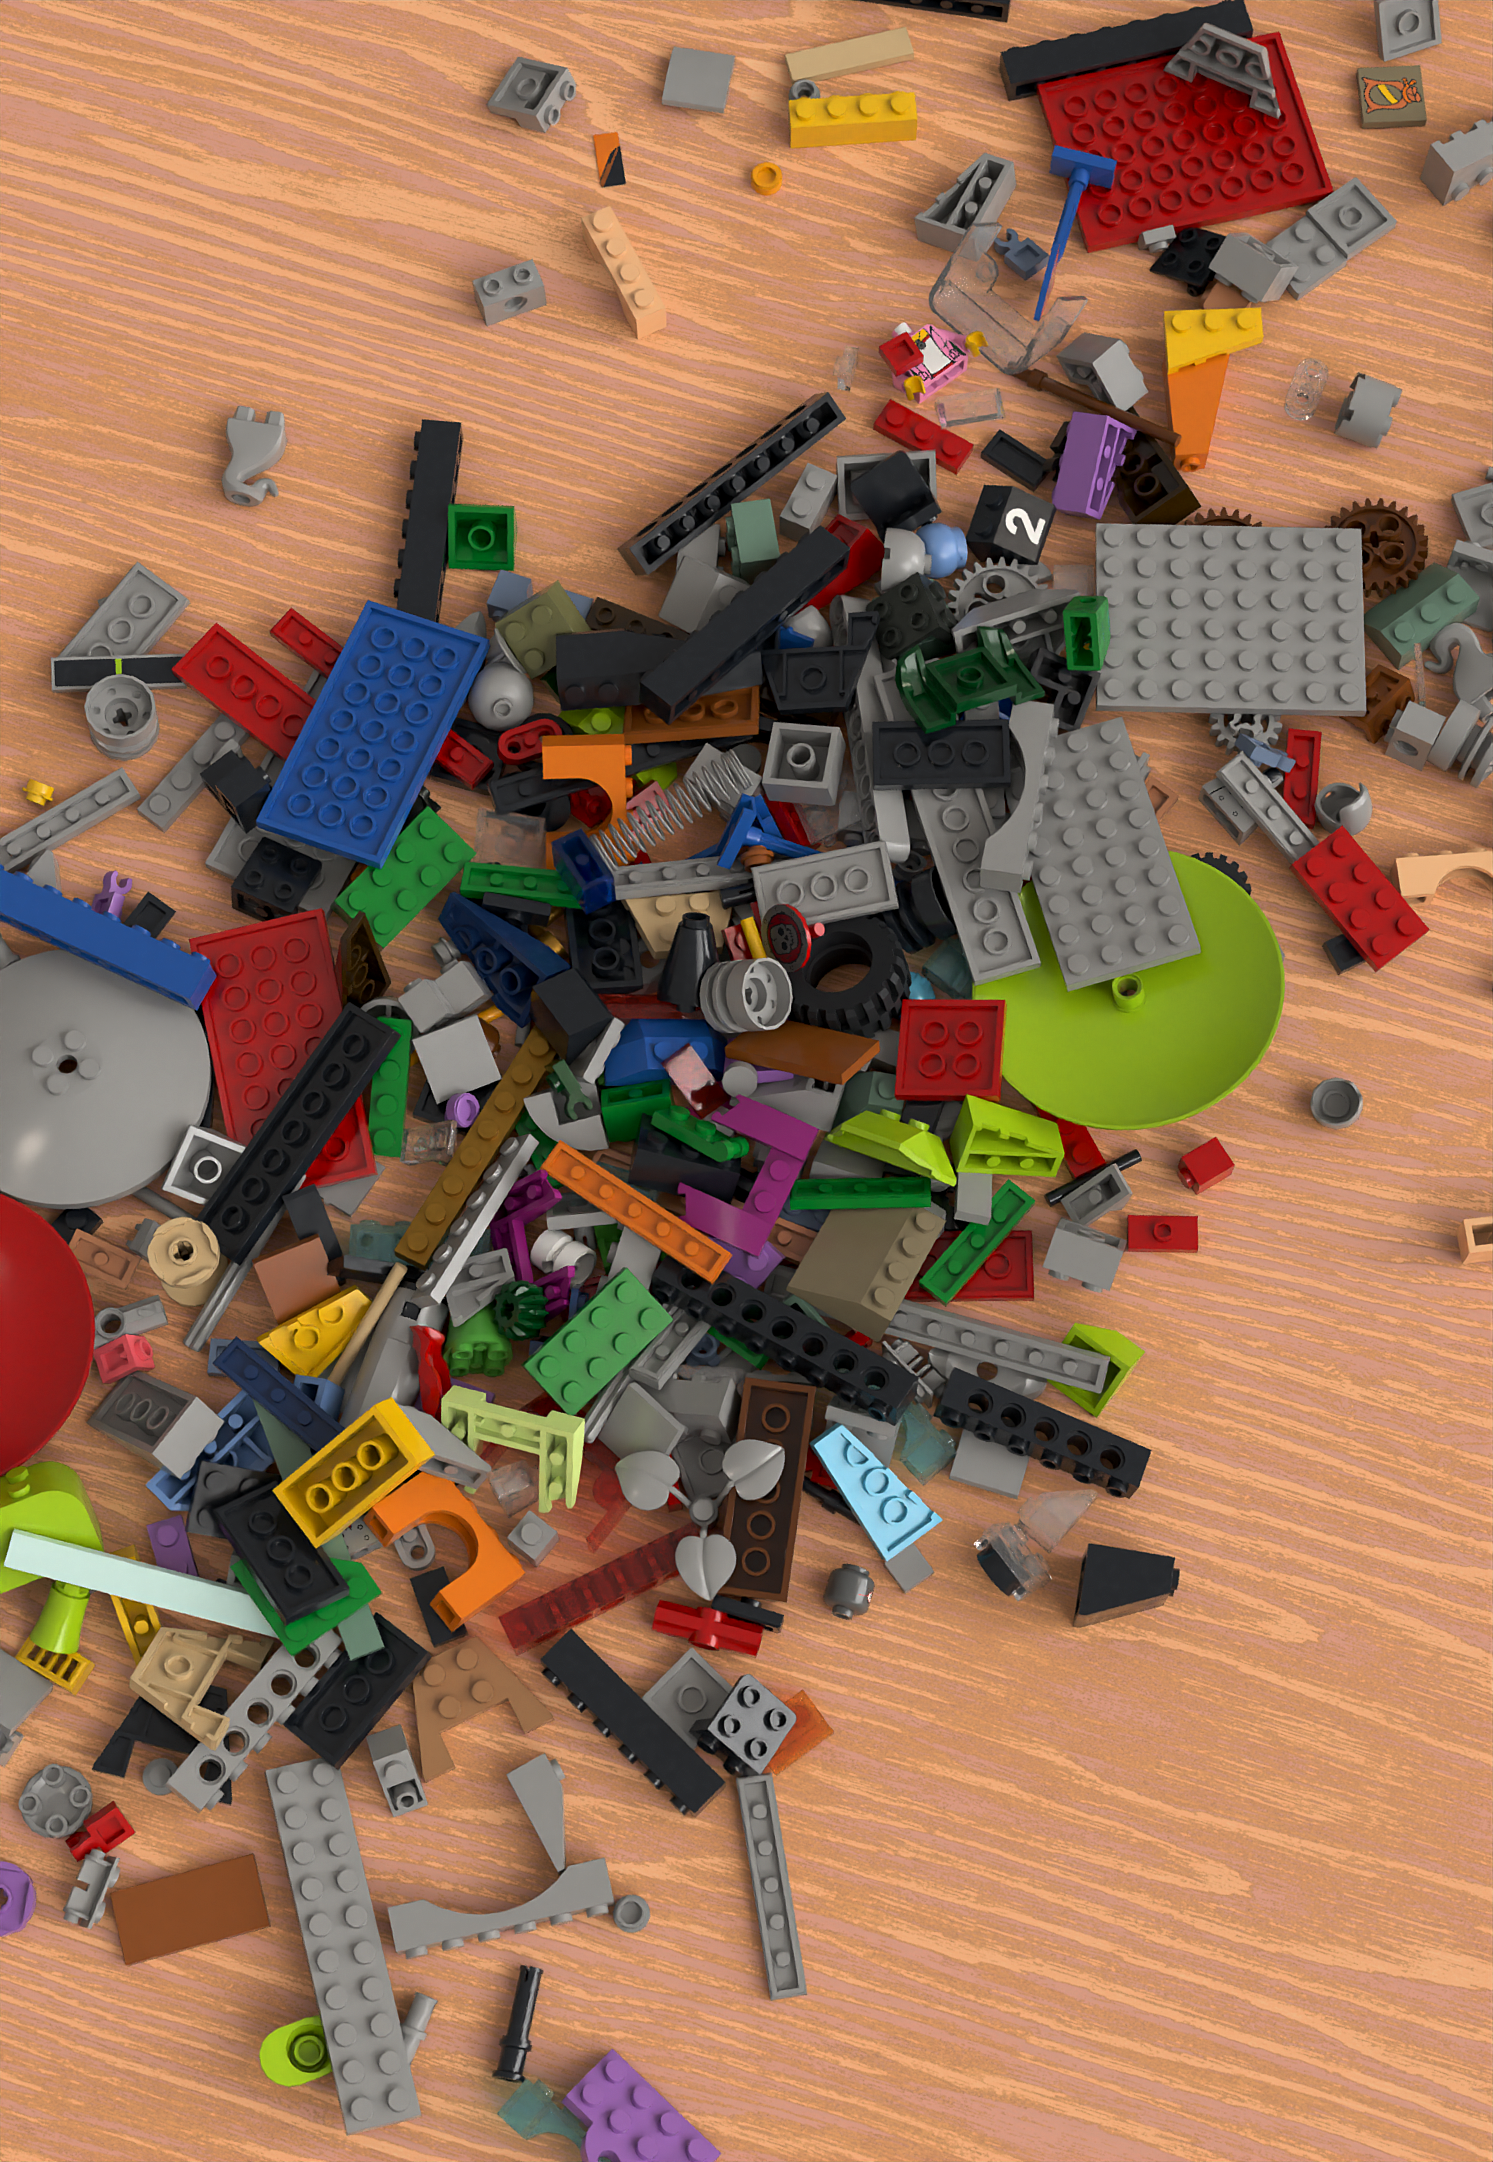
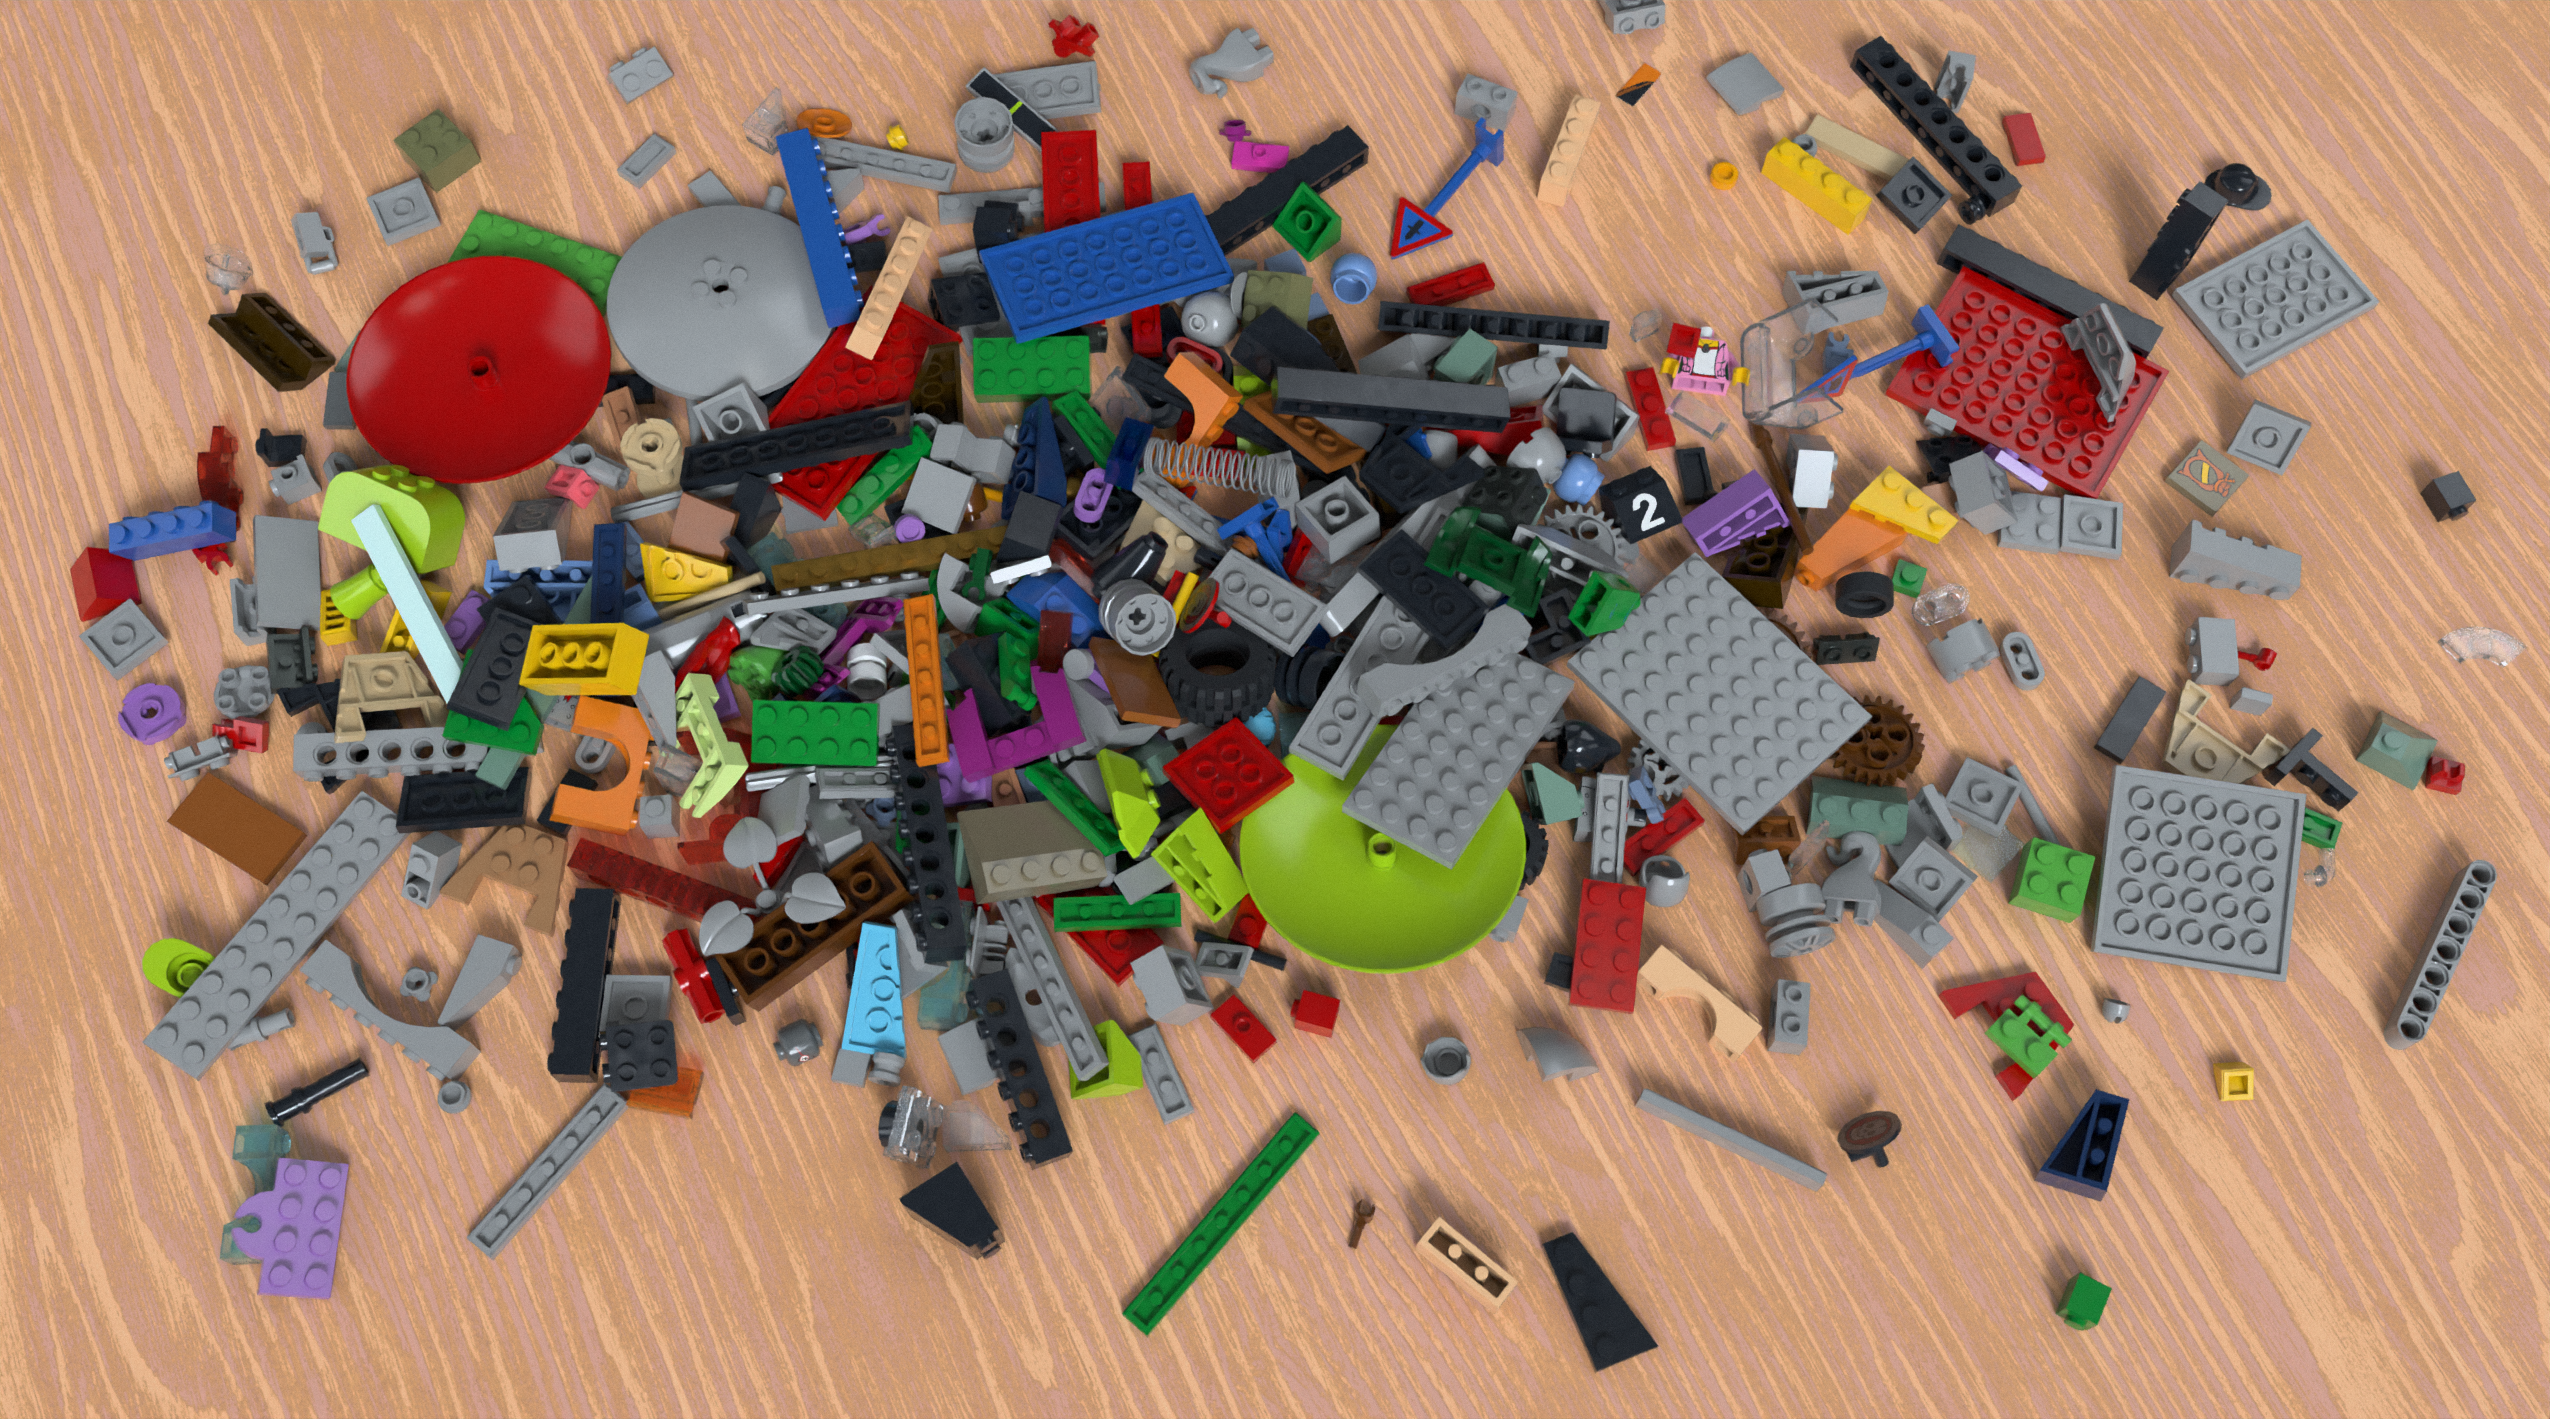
camera: 45 degrees right, 5 degrees down
(68, 1736) = (291, 660): none -> pearl dark grey bracket
(92, 559) = (1073, 37): none -> red hips
(239, 963) = (889, 288): none -> light nougat arch
(325, 512) = (1235, 130): none -> magenta plate
(371, 516) = (1259, 157): none -> dark pink plate
(485, 1861) = (416, 975): none -> light grey plate
(571, 456) = (1418, 227): none -> blue piece
(575, 549) = (1353, 278): none -> medium blue piece
(587, 937) = (1091, 496): none -> medium lavender plate
(655, 482) = (1452, 286): none -> red tile
(798, 465) = (1556, 350): none -> light grey plate
(936, 57) = (1914, 195): none -> black plate
(939, 1540) = (886, 1069): none -> light grey wheel
(992, 29) = (1971, 210): none -> black bush
(1146, 1331) = (1161, 1075): none -> light grey tile
(1179, 763) = (1584, 747): none -> black piece
(1200, 826) = (1550, 795): none -> sand green slope
(1251, 436) = (1864, 594): none -> black tyre
(1252, 221) = (2023, 472): none -> plate
(1261, 391) = (1908, 578): none -> green plate
(1284, 484) = (1852, 649): none -> pearl dark grey hinge
(1307, 1392) = (1220, 1224): none -> green tile
(1402, 1284) = (1361, 1221): none -> reddish brown hand
(1407, 1015) = (1556, 1053): none -> light grey brick
(1412, 377) = (2021, 663): none -> light grey plate

